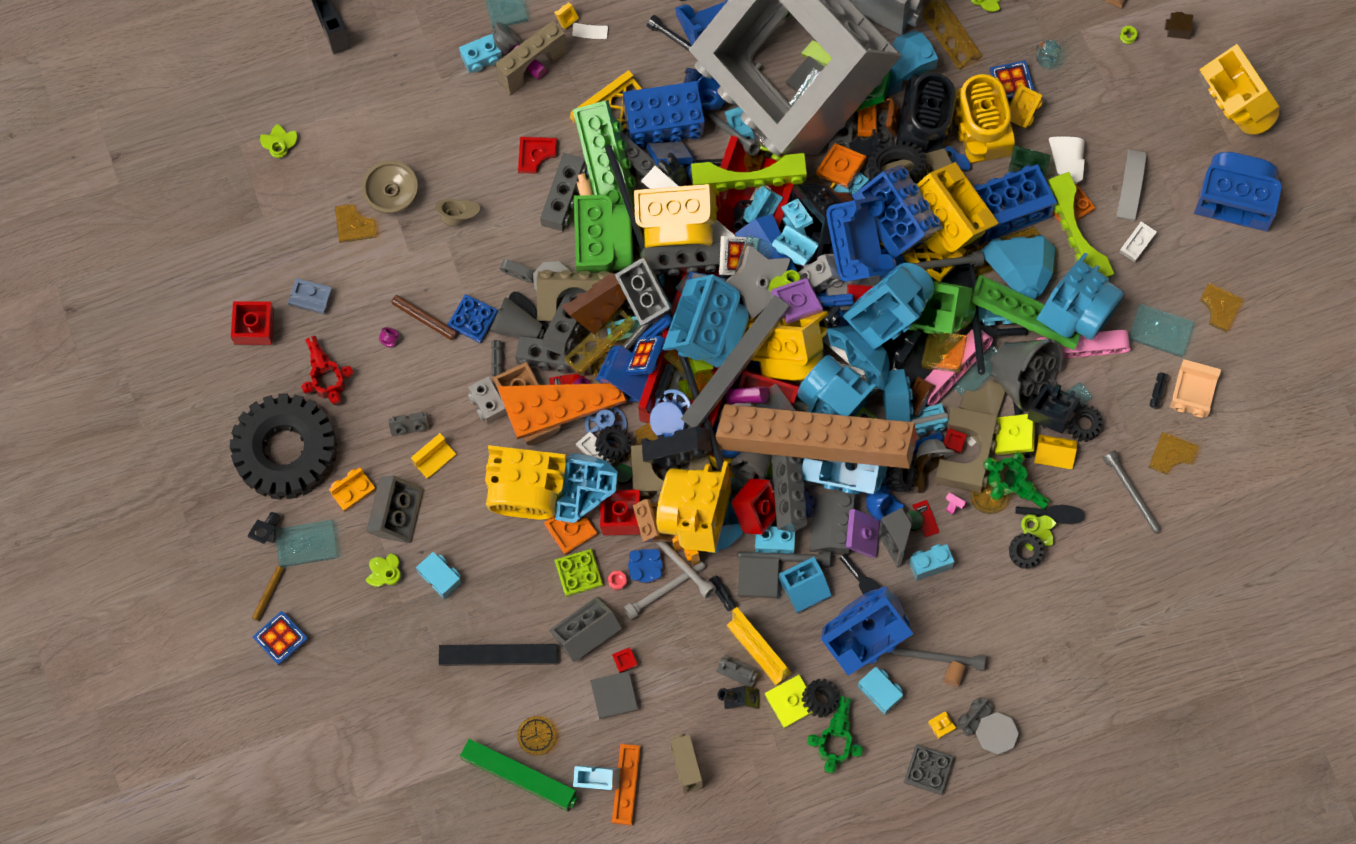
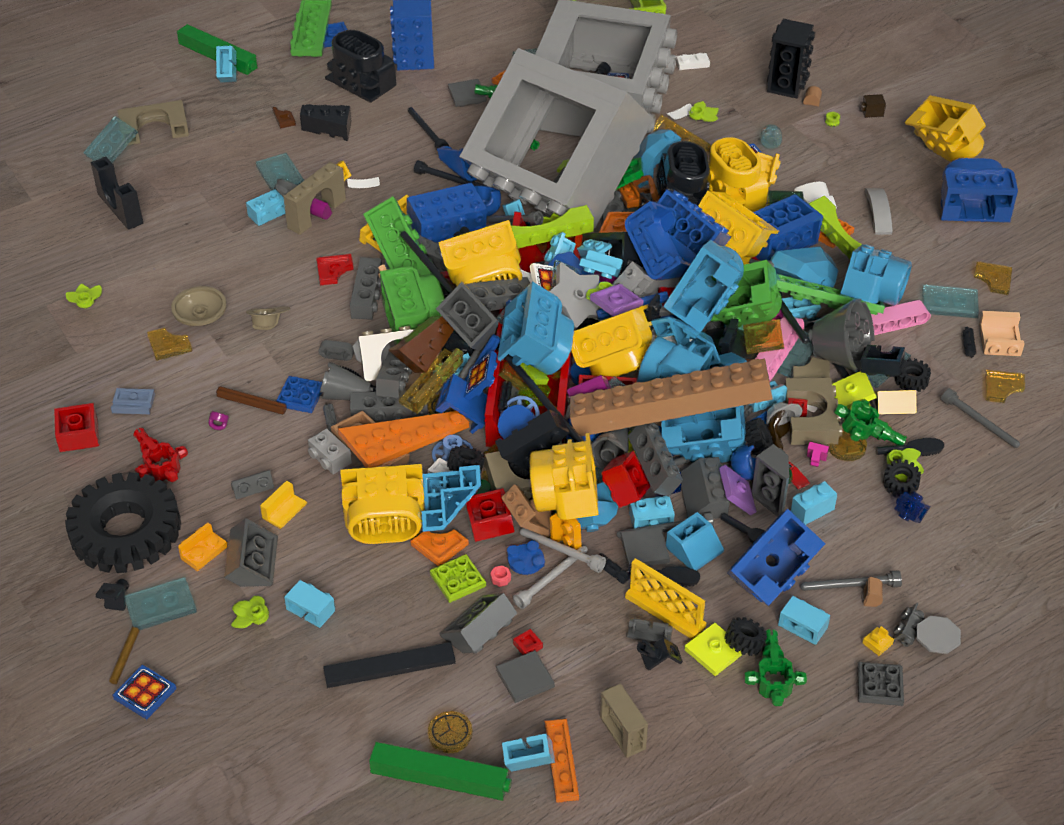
camera: 15 degrees left, 25 degrees down
(736, 362) = (573, 354): dark grey tile -> none
(776, 613) = (680, 575): none -> black piece
(1023, 587) = (911, 507): none -> clear blue brick
(1137, 242) = (902, 243): white plate -> none

